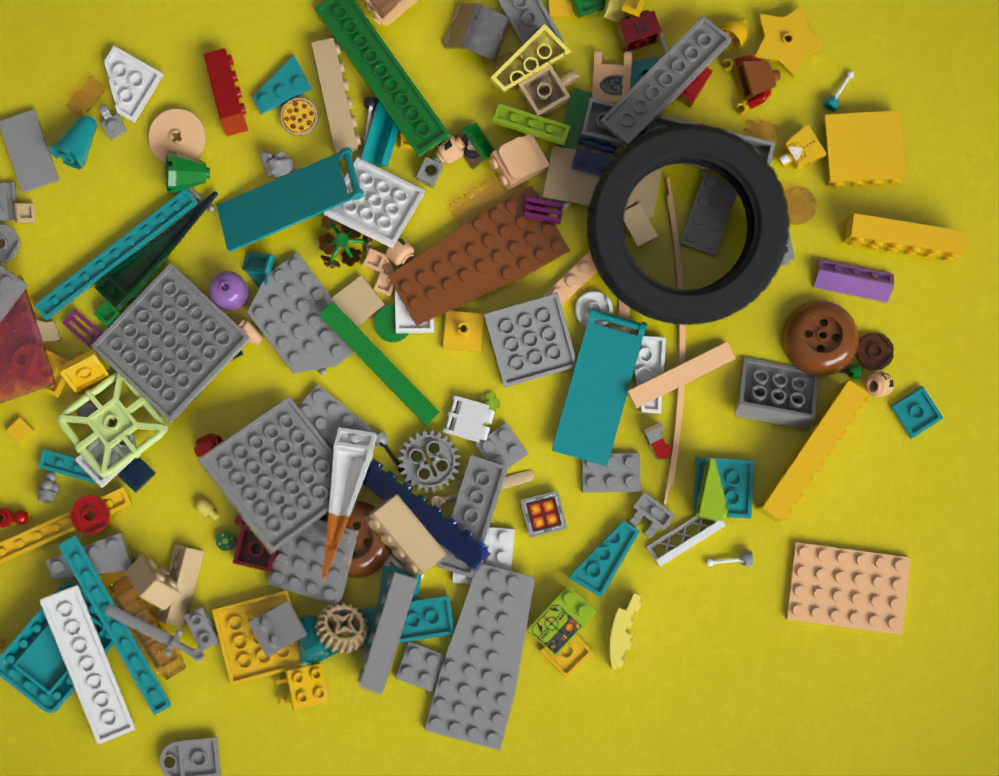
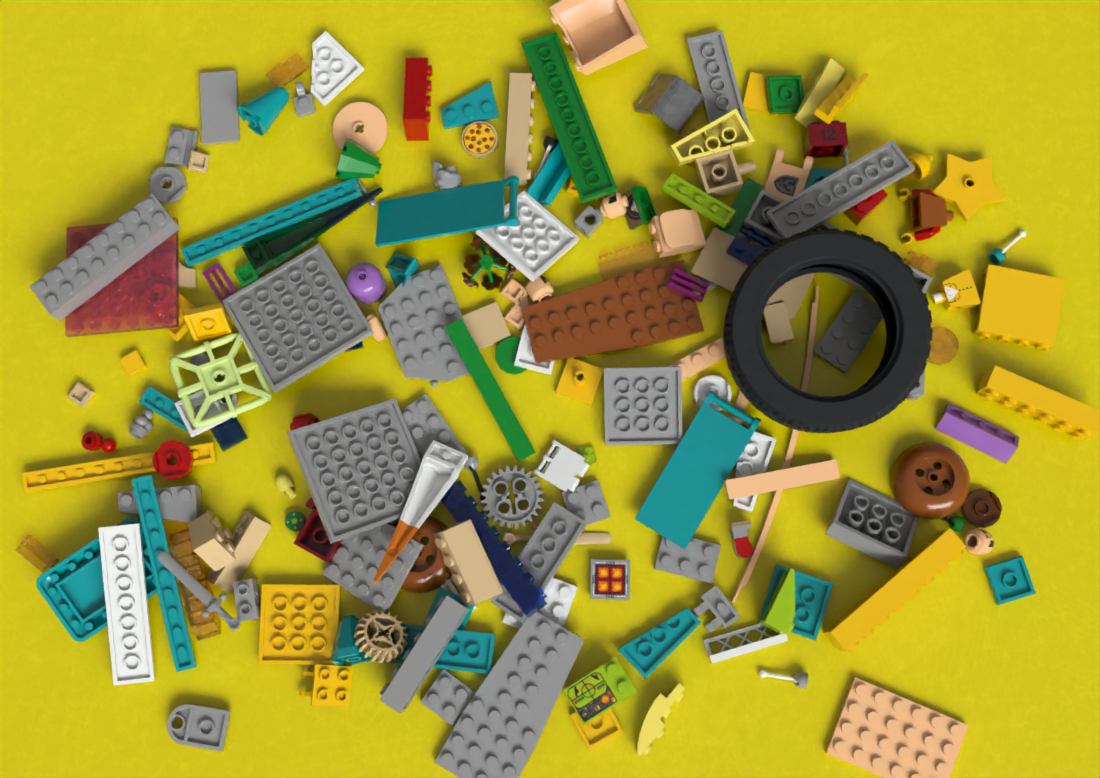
camera: 30 degrees right, 5 degrees down
(277, 628) = (318, 620): light grey bracket -> none

